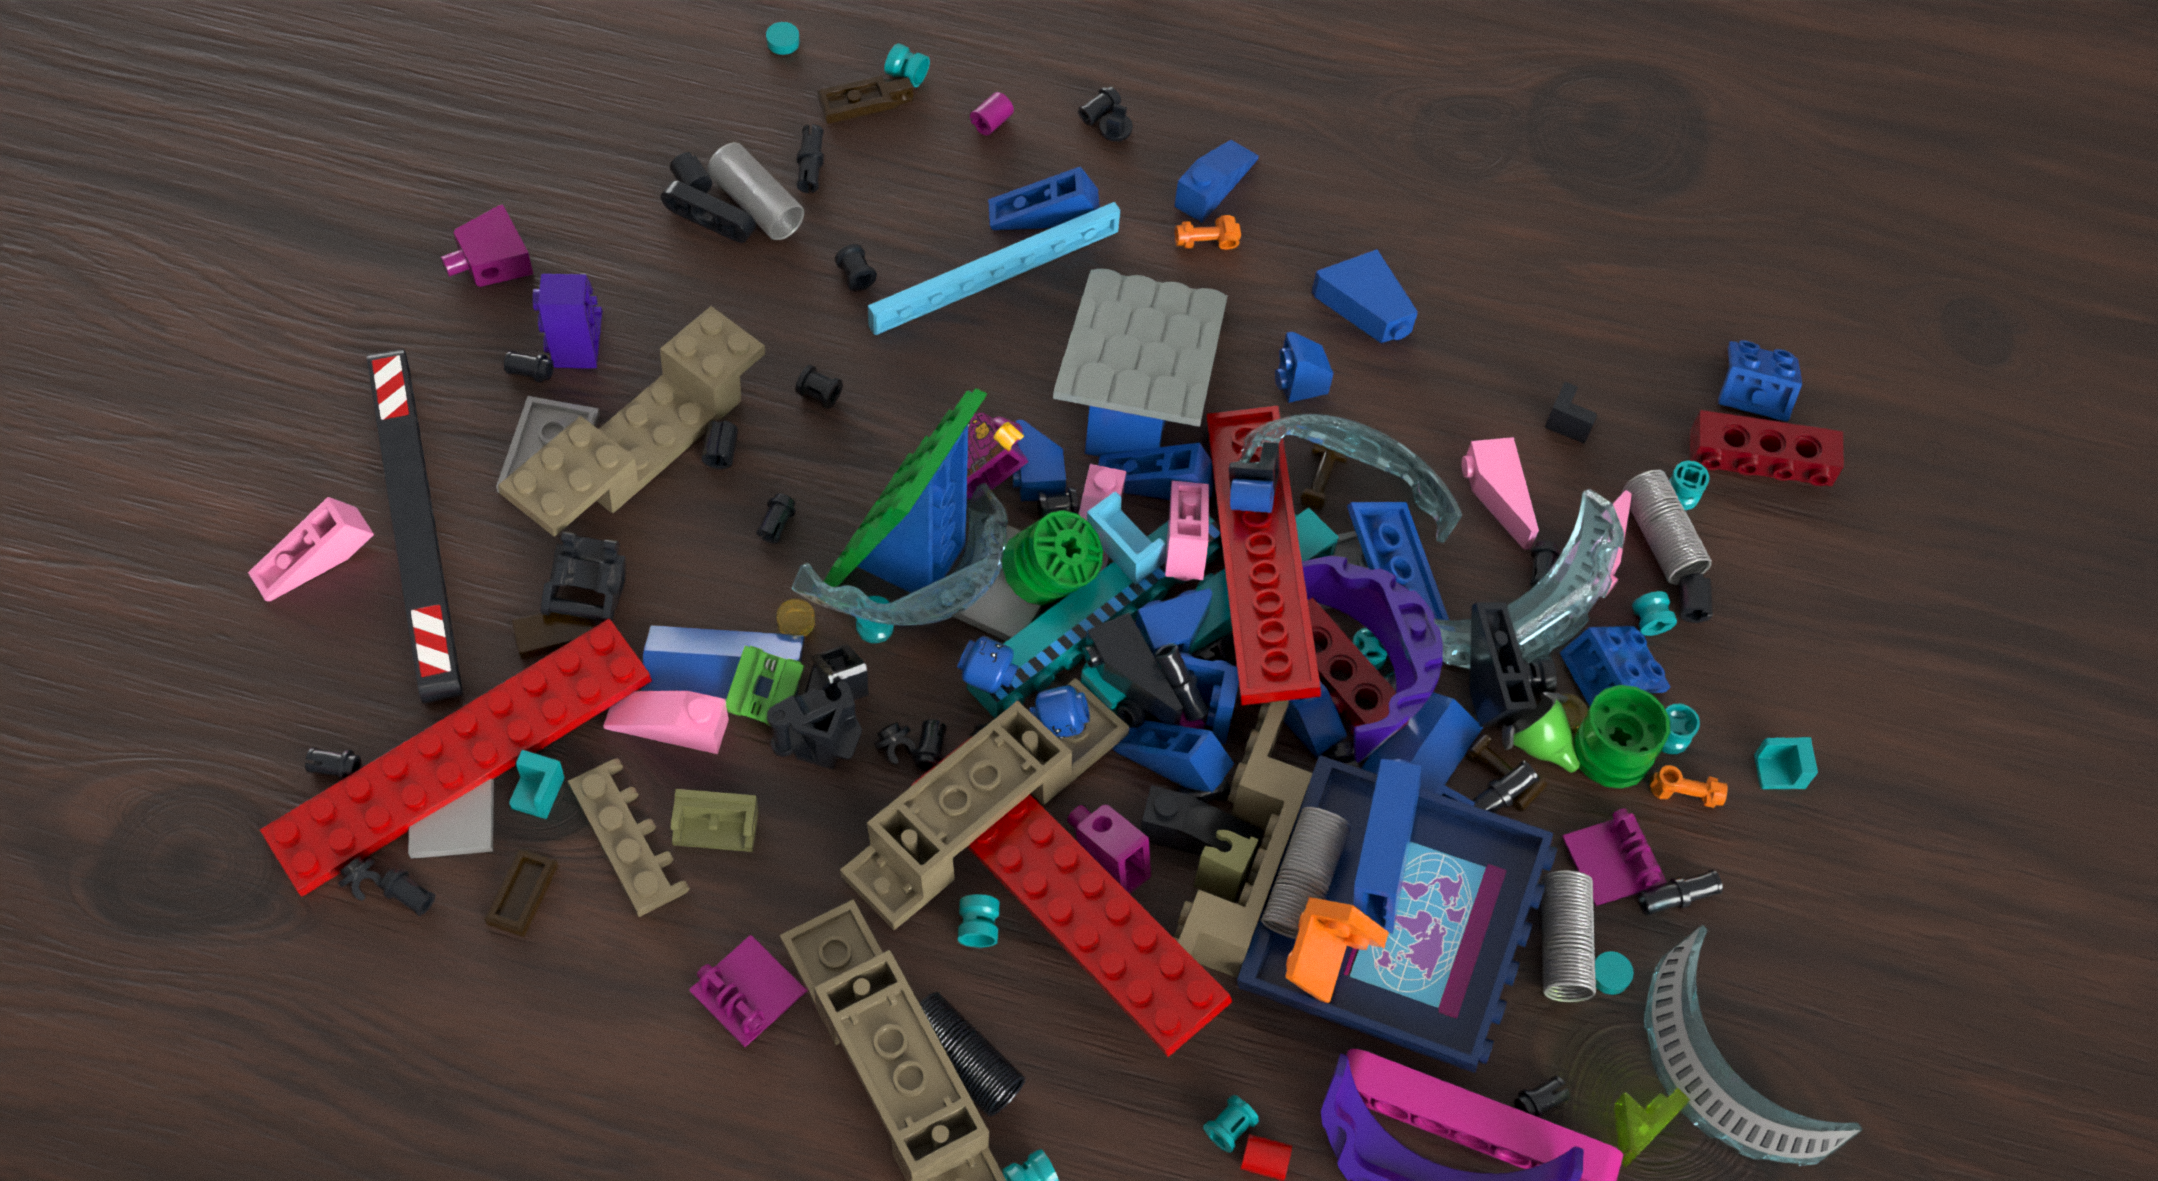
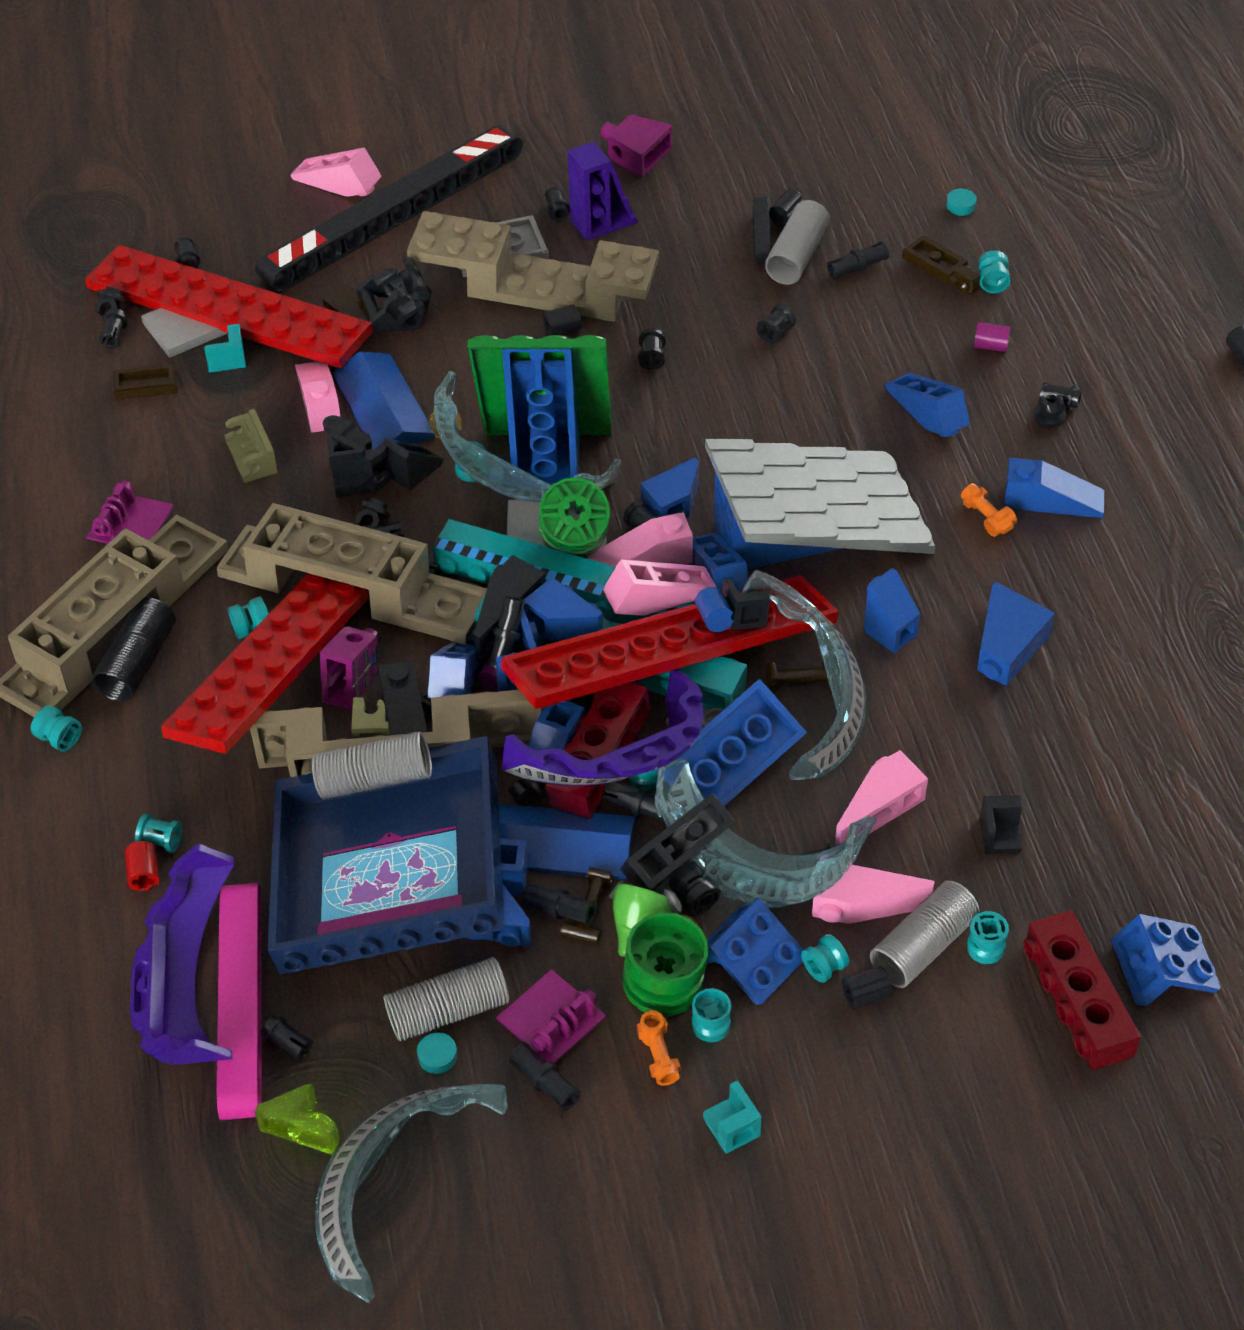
camera: 70 degrees right, 10 degrees down
(624, 838) = (212, 411): dark tan hinge -> none
(751, 667) = (375, 417): bright green piece -> none
(987, 665) = (450, 517): blue head -> none
(992, 451) = (646, 453): magenta torso -> none
(993, 268) = (843, 398): medium azure tile -> none
(1062, 710) = (443, 581): blue head -> none
(1124, 540) = (624, 538): medium azure panel -> none
(1322, 941) = (307, 799): orange bracket -> none
(1387, 841) = (417, 795): blue slope -> none

